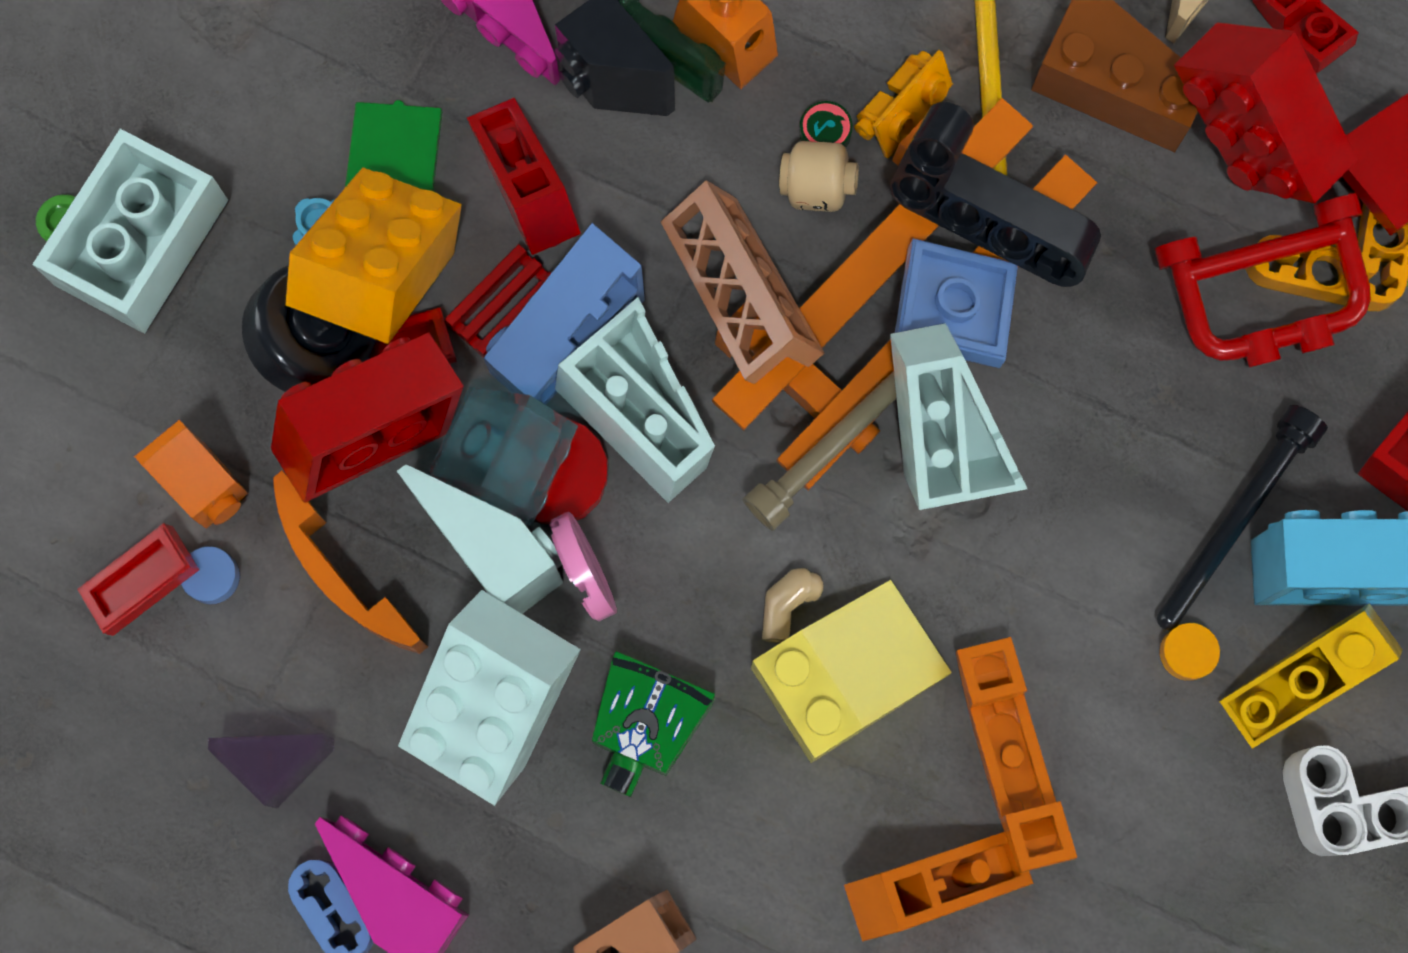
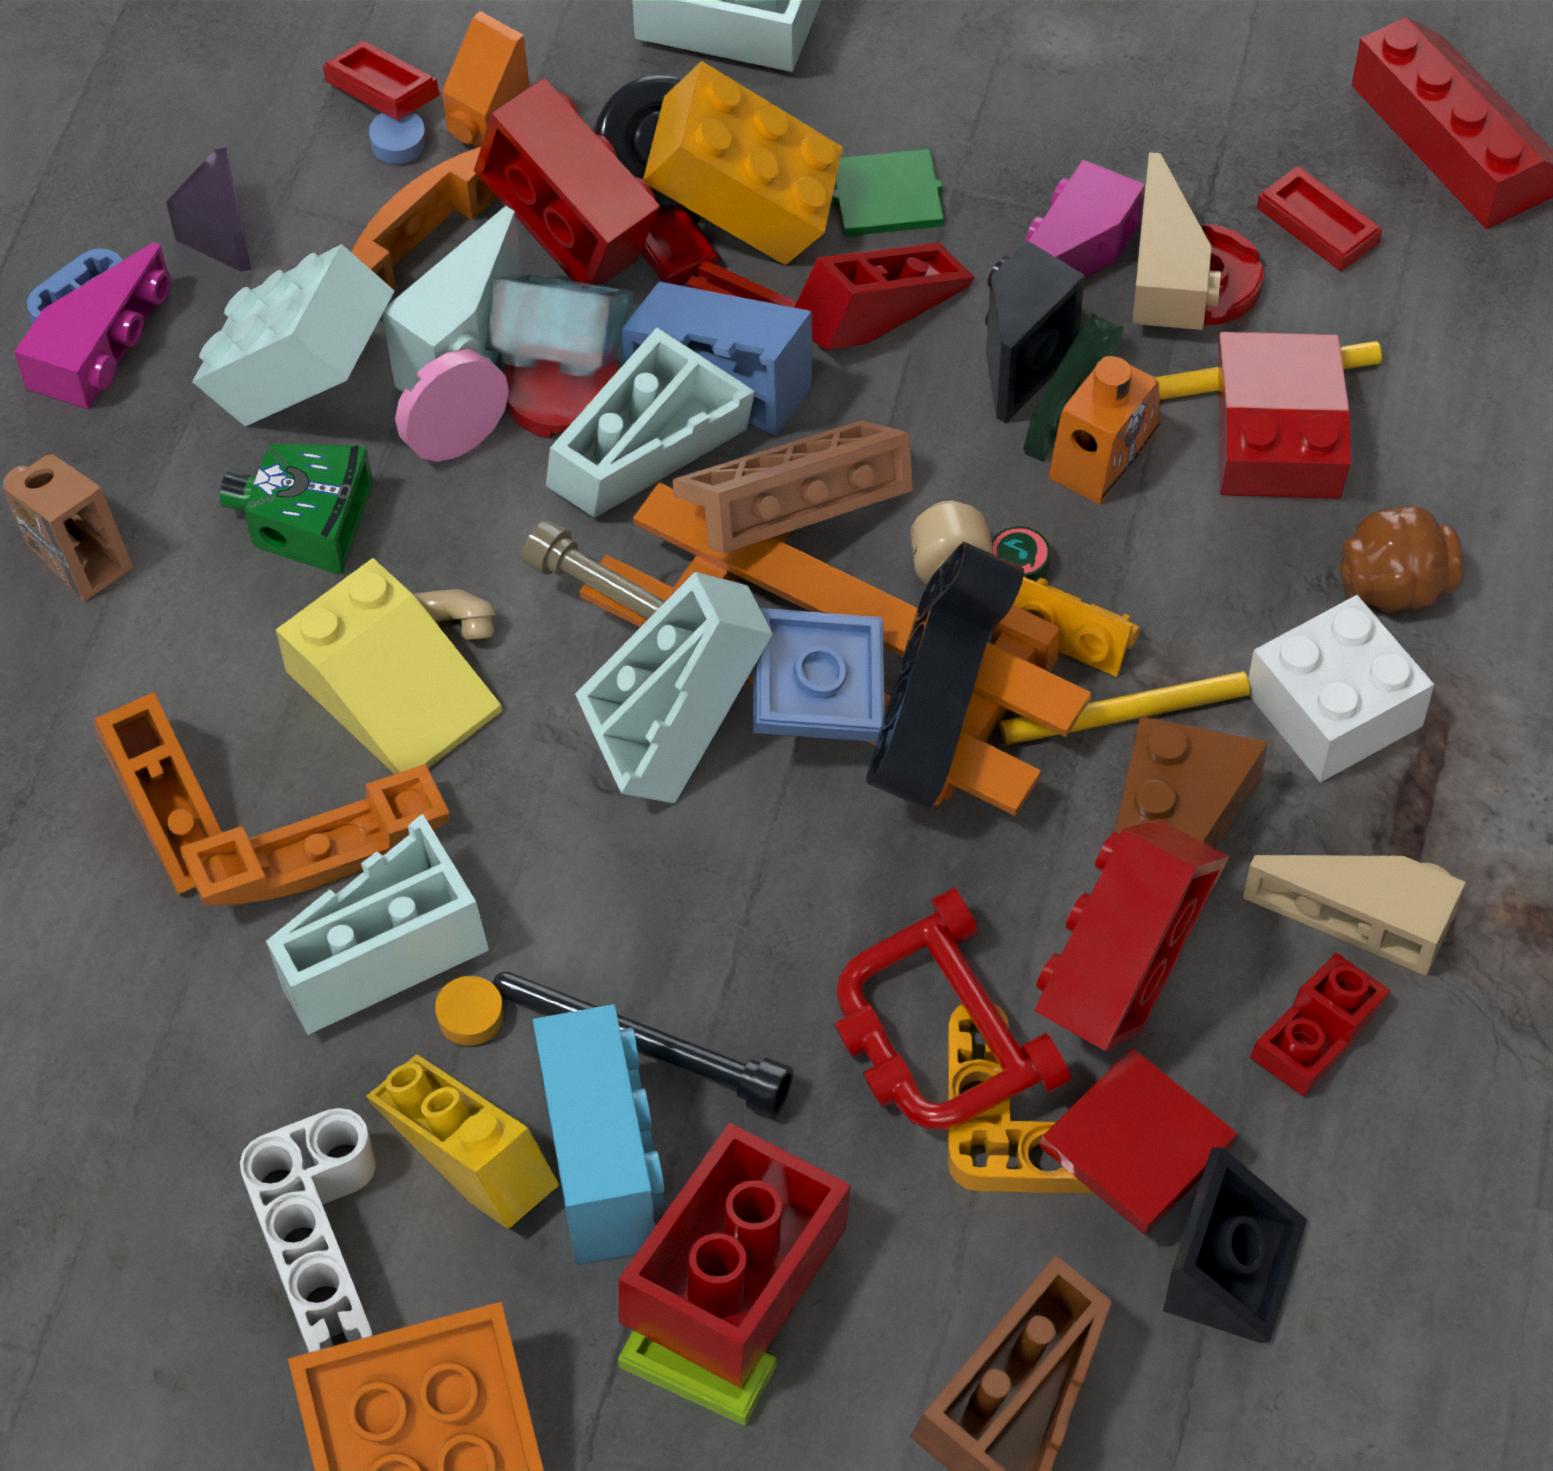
camera: 80 degrees right, 20 degrees down
(1125, 708) = (378, 933): none -> light aqua wedge

